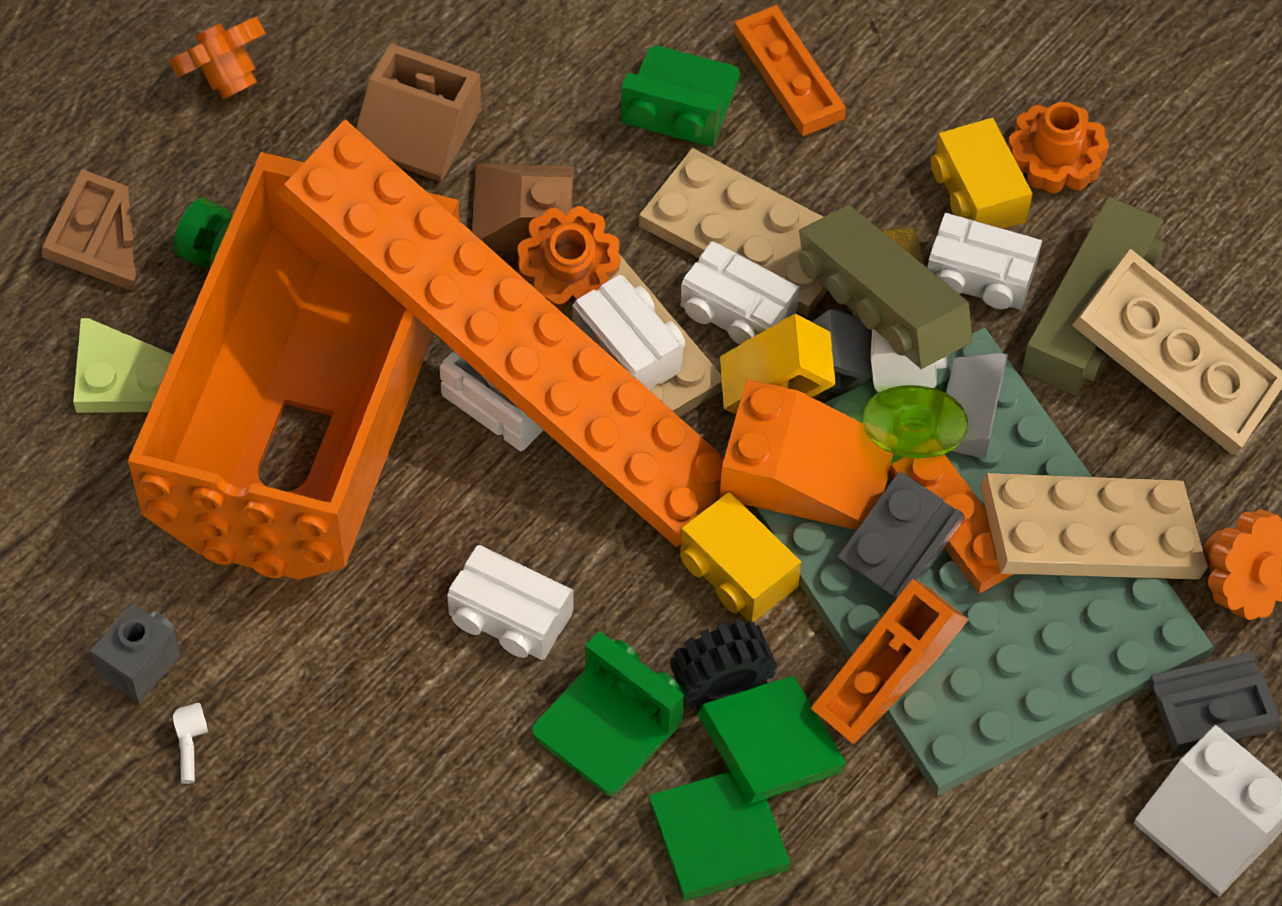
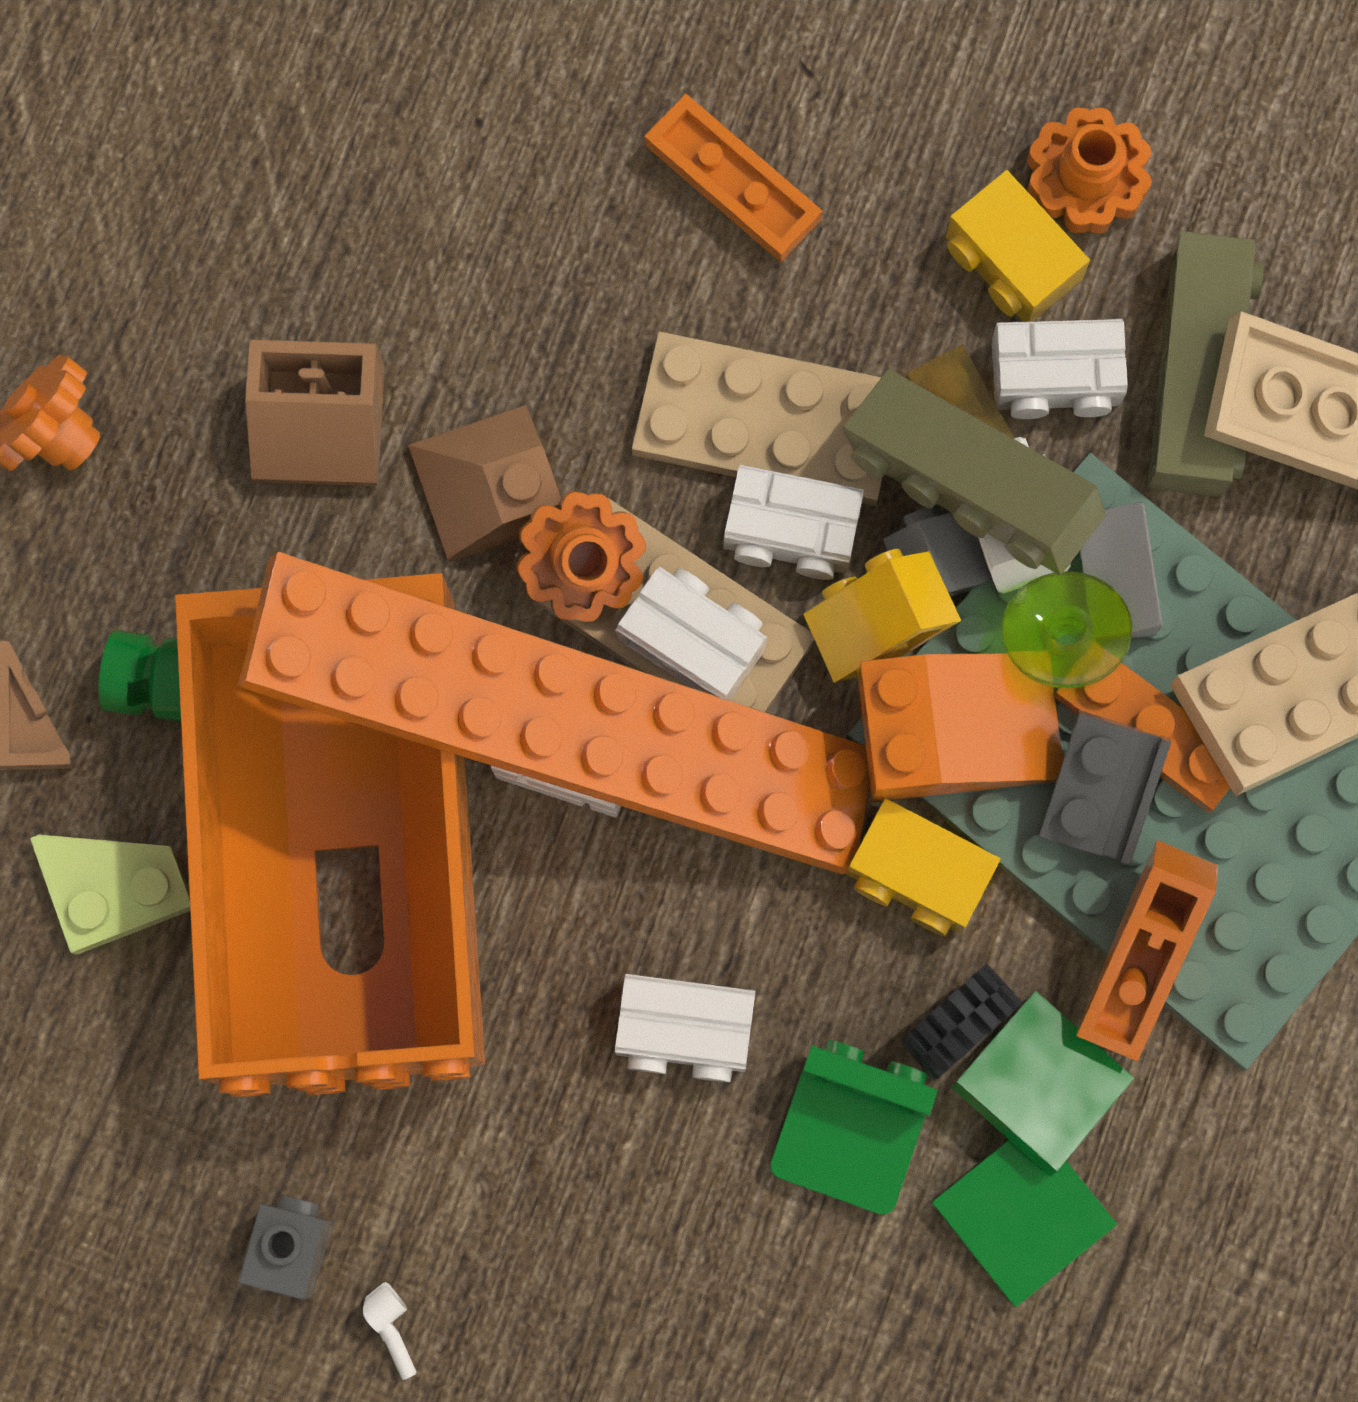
camera: 15 degrees left, 20 degrees up
(679, 95) = (616, 260): green bracket -> none

